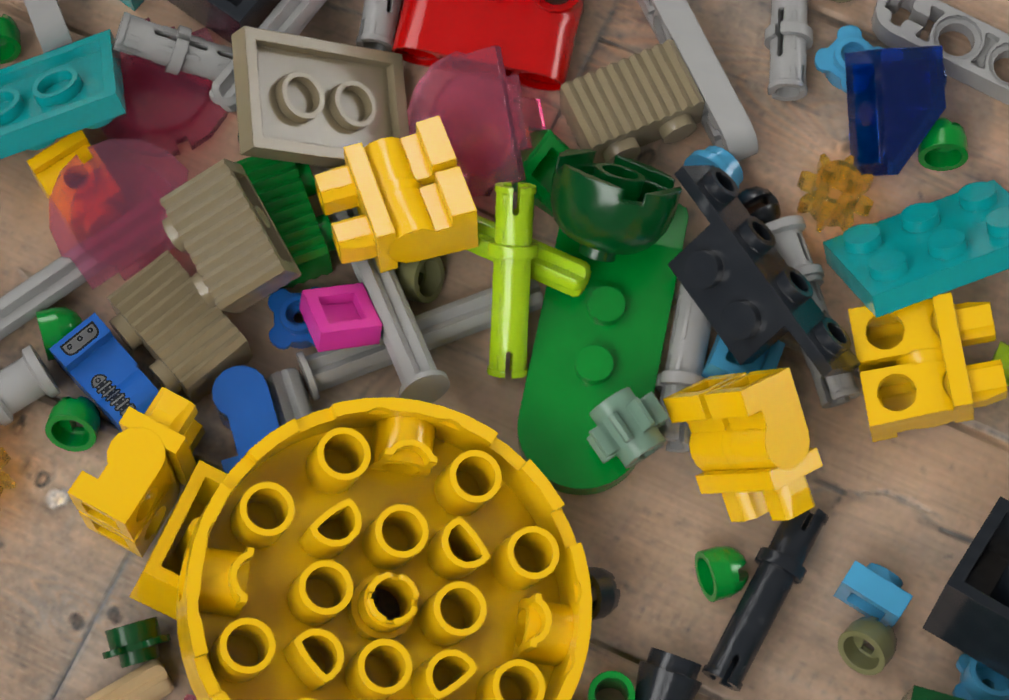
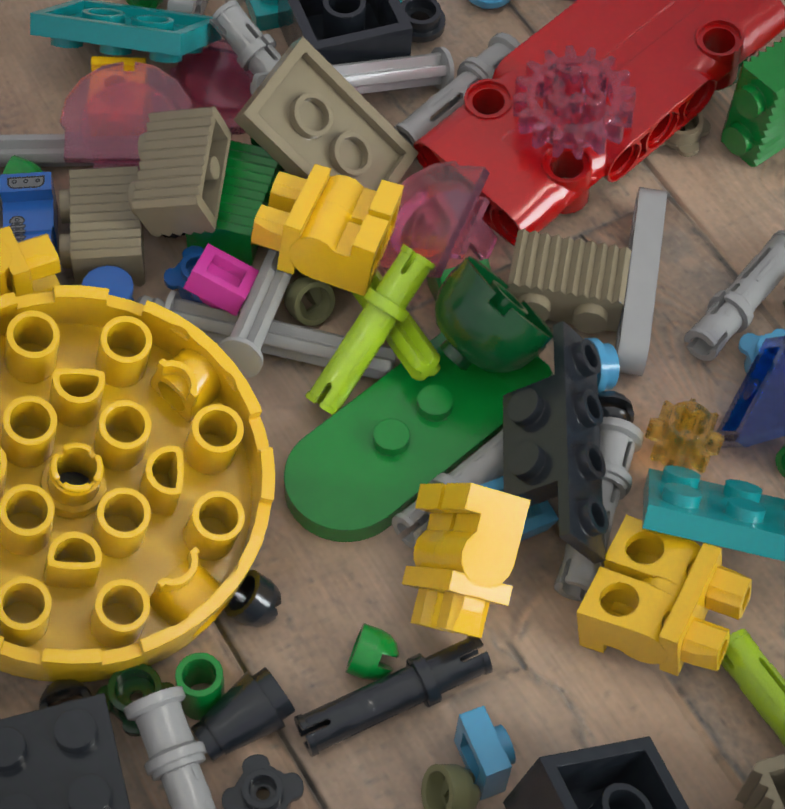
camera: 30 degrees right, 15 degrees down
(627, 427) = (375, 486): sand green gear -> none

